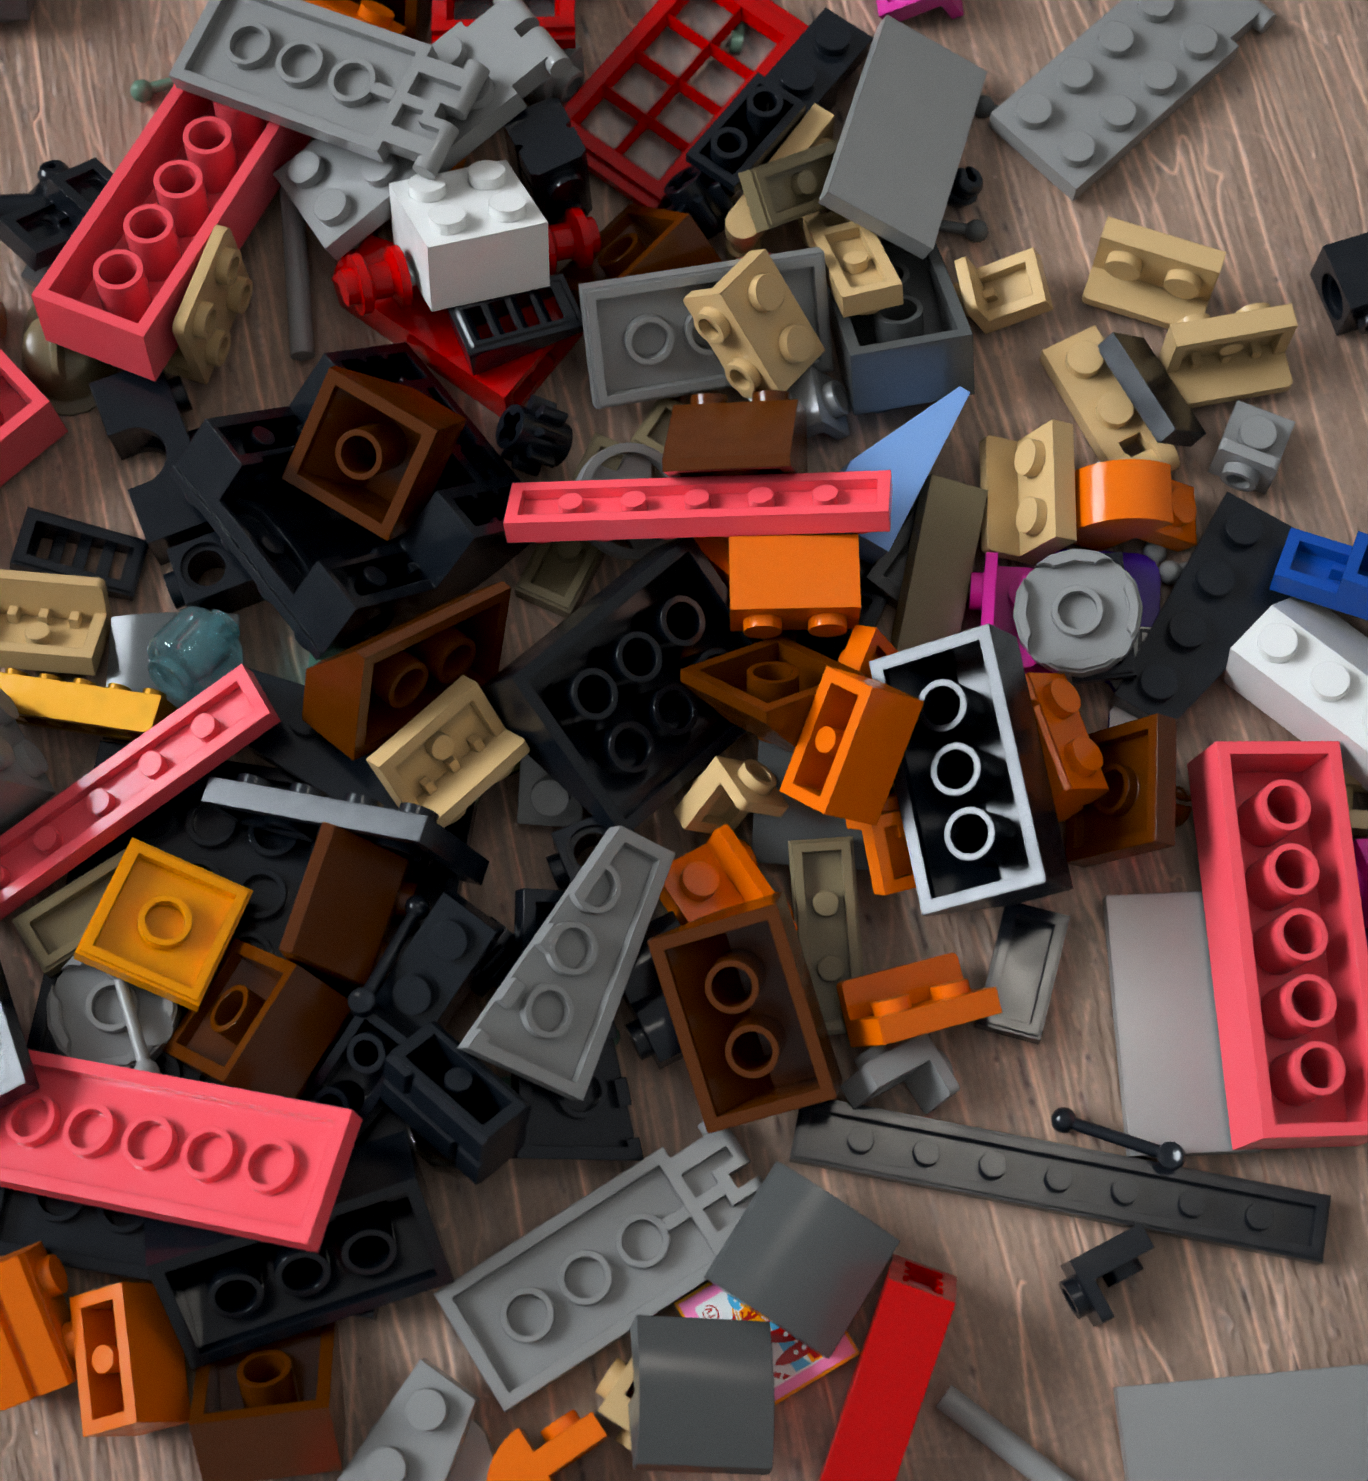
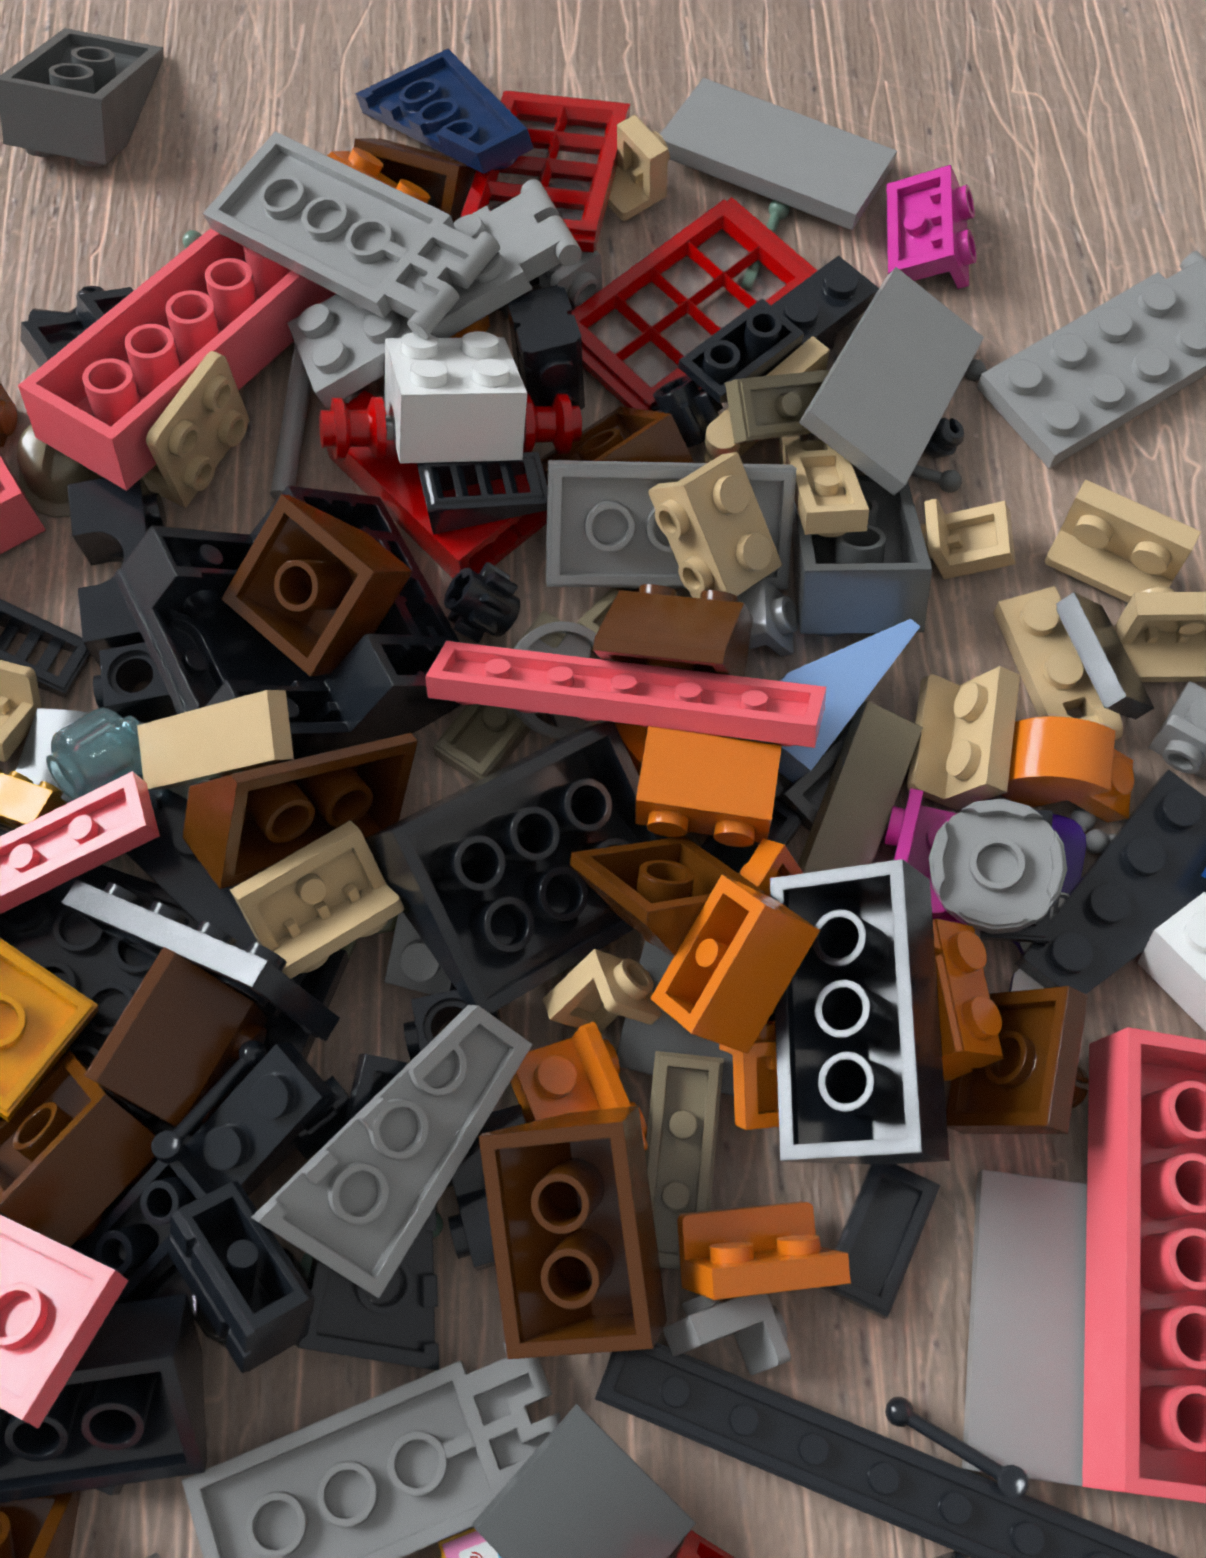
camera: 10 degrees right, 5 degrees down
(318, 621) = (216, 740): none -> tan tile

